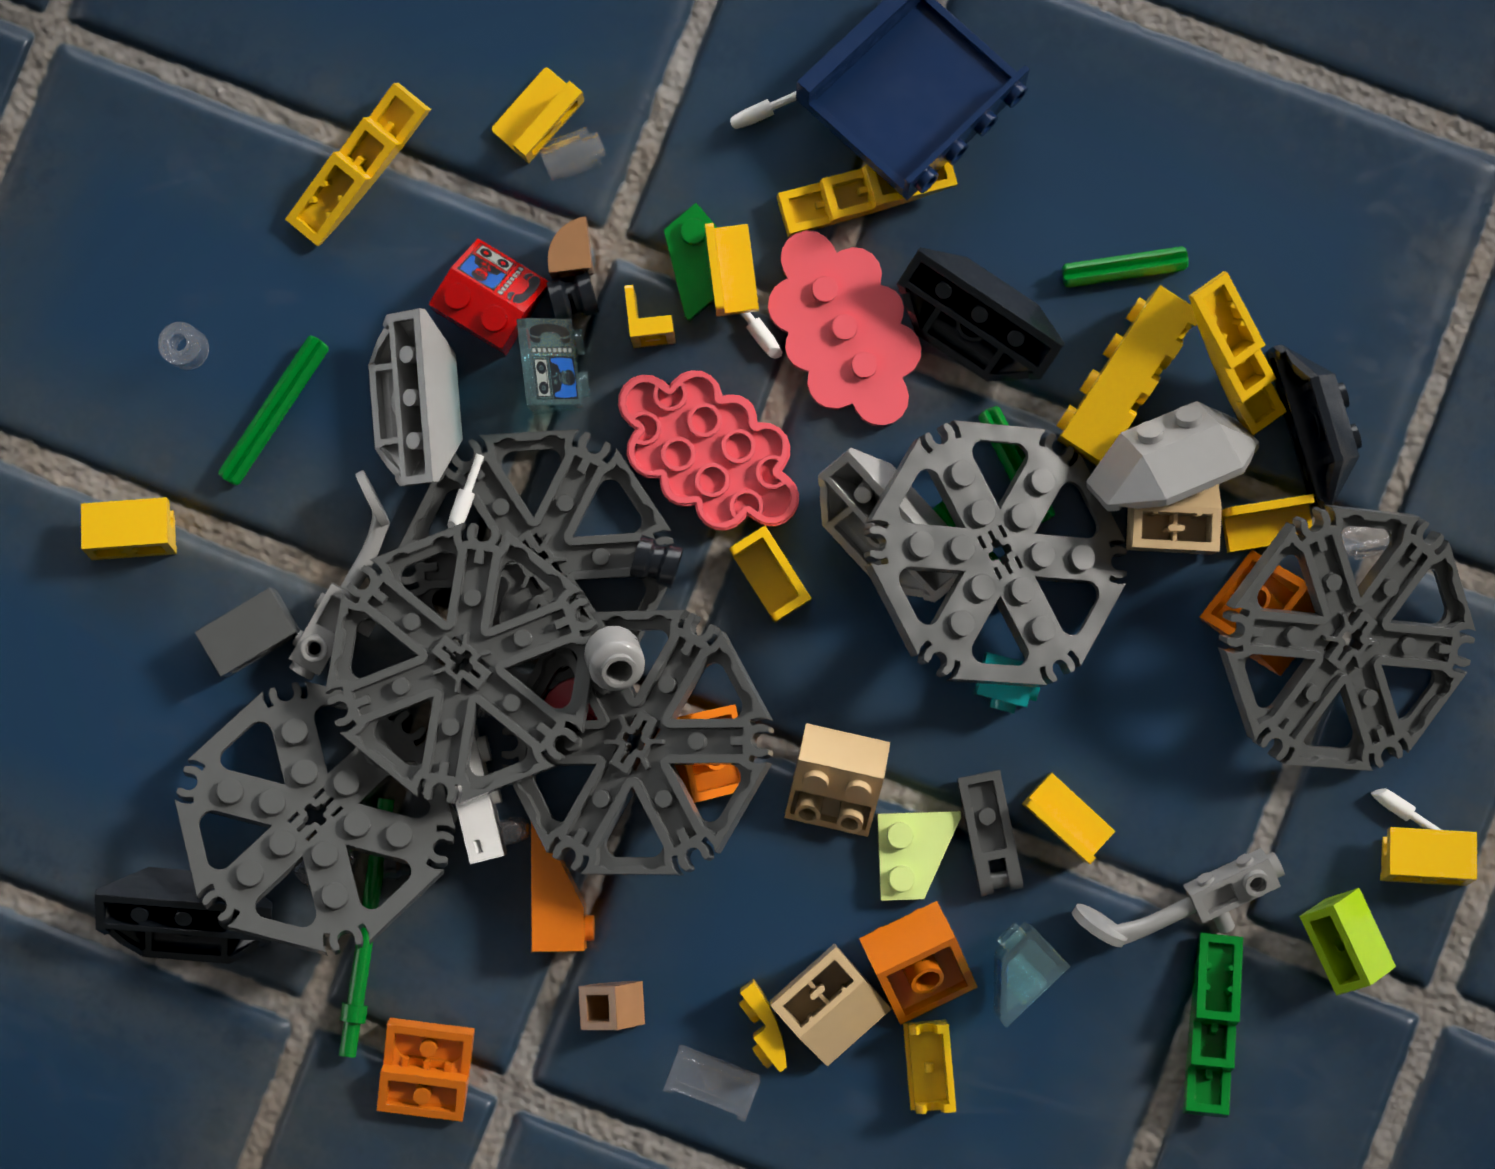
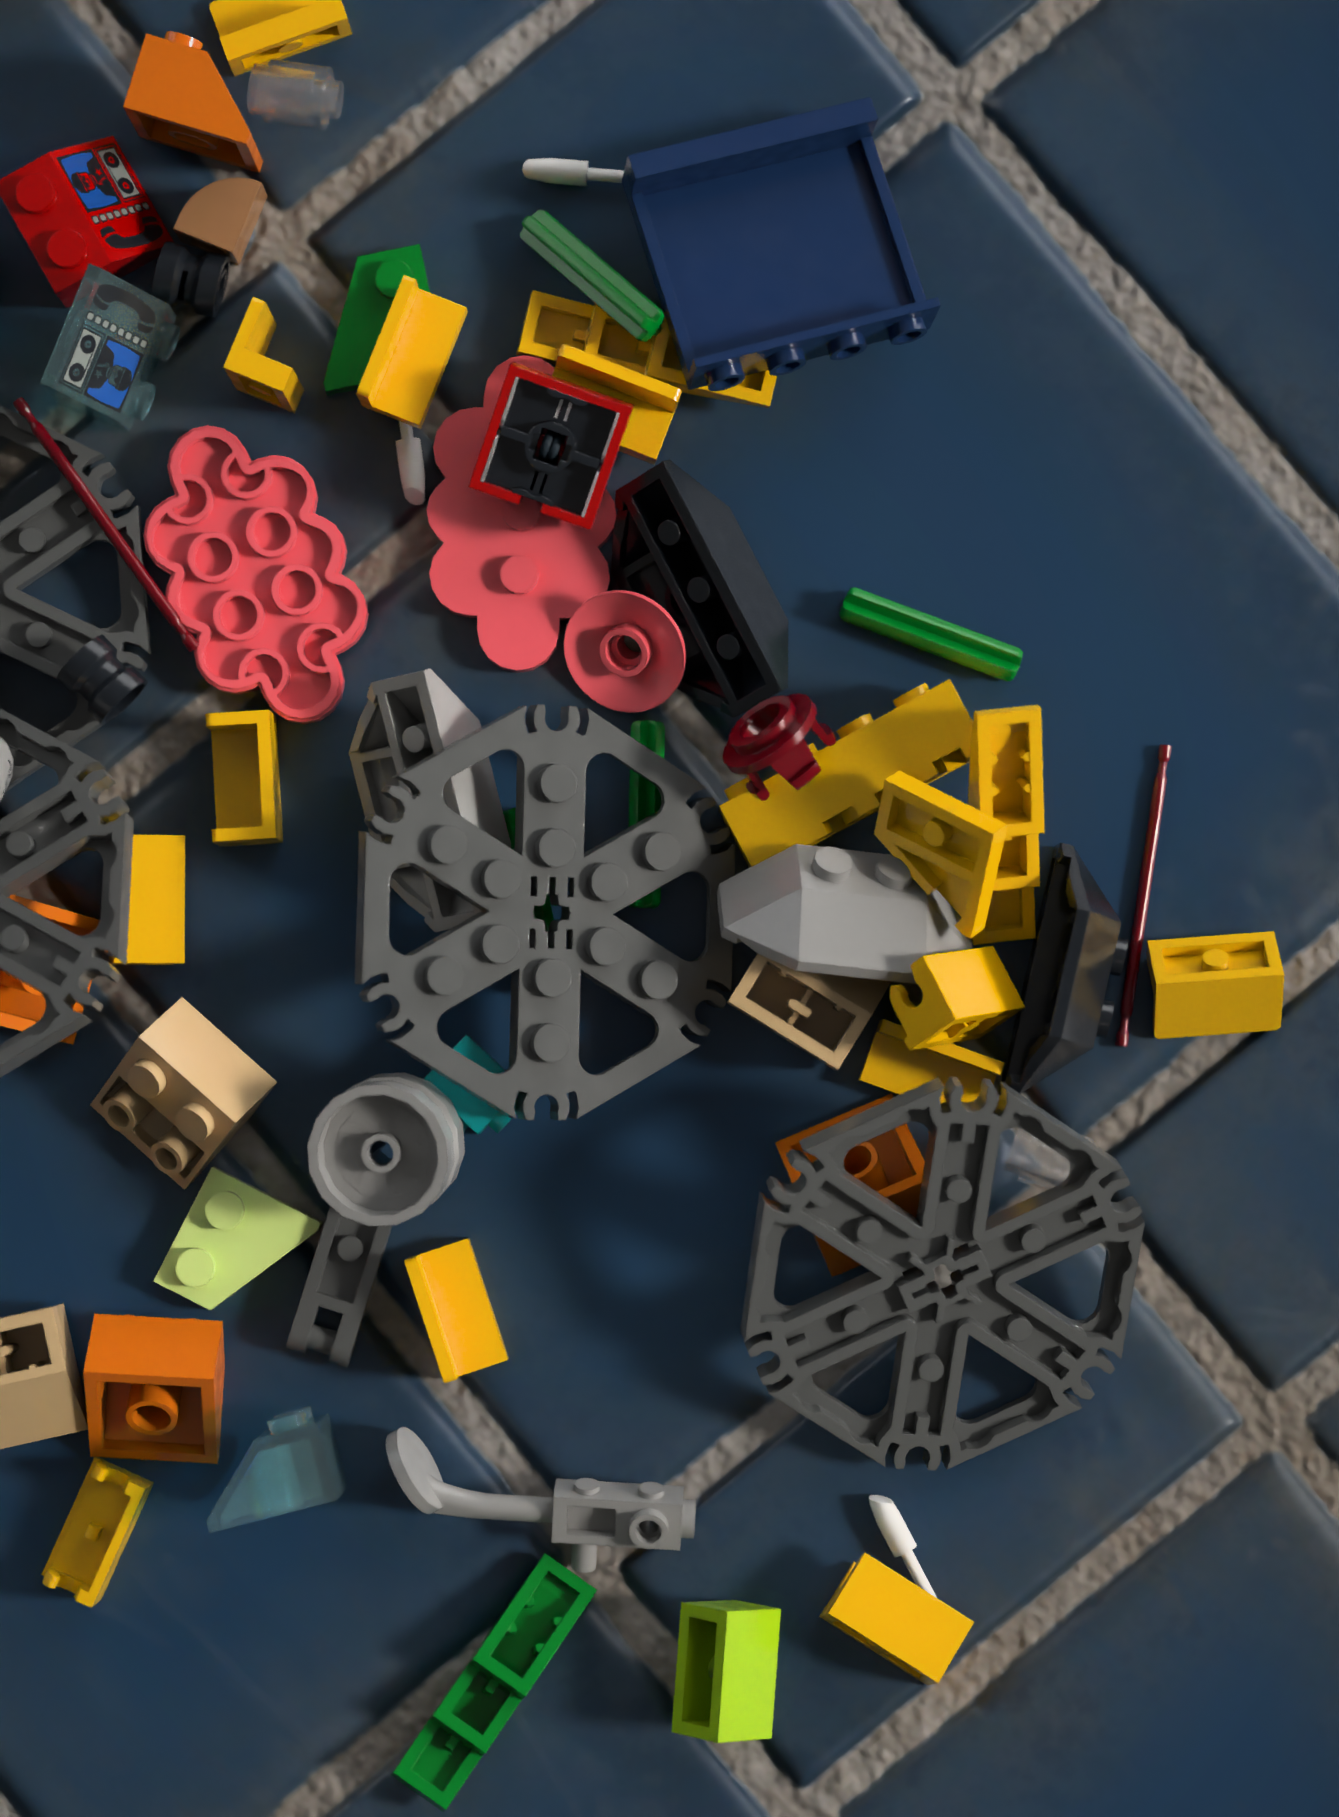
camera: 25 degrees right, 0 degrees up
(518, 192) = (185, 103): none -> orange slope
(604, 469) = (106, 524): none -> dark red piece
(762, 673) = (156, 901): none -> yellow hinge
(810, 164) = (592, 275): none -> green axle
(833, 289) = (562, 476): none -> piece
(862, 234) = (653, 399): none -> yellow panel
(955, 392) = (608, 668): none -> coral dish
(1004, 756) = (348, 1148): none -> light grey wheel
(1069, 382) = (774, 736): none -> dark red piece
(1211, 385) = (943, 845): none -> yellow wing
(1270, 466) = (961, 999): none -> yellow hinge
(1333, 350) = (1143, 895): none -> dark red piece
(1407, 380) = (1215, 984): none -> yellow panel

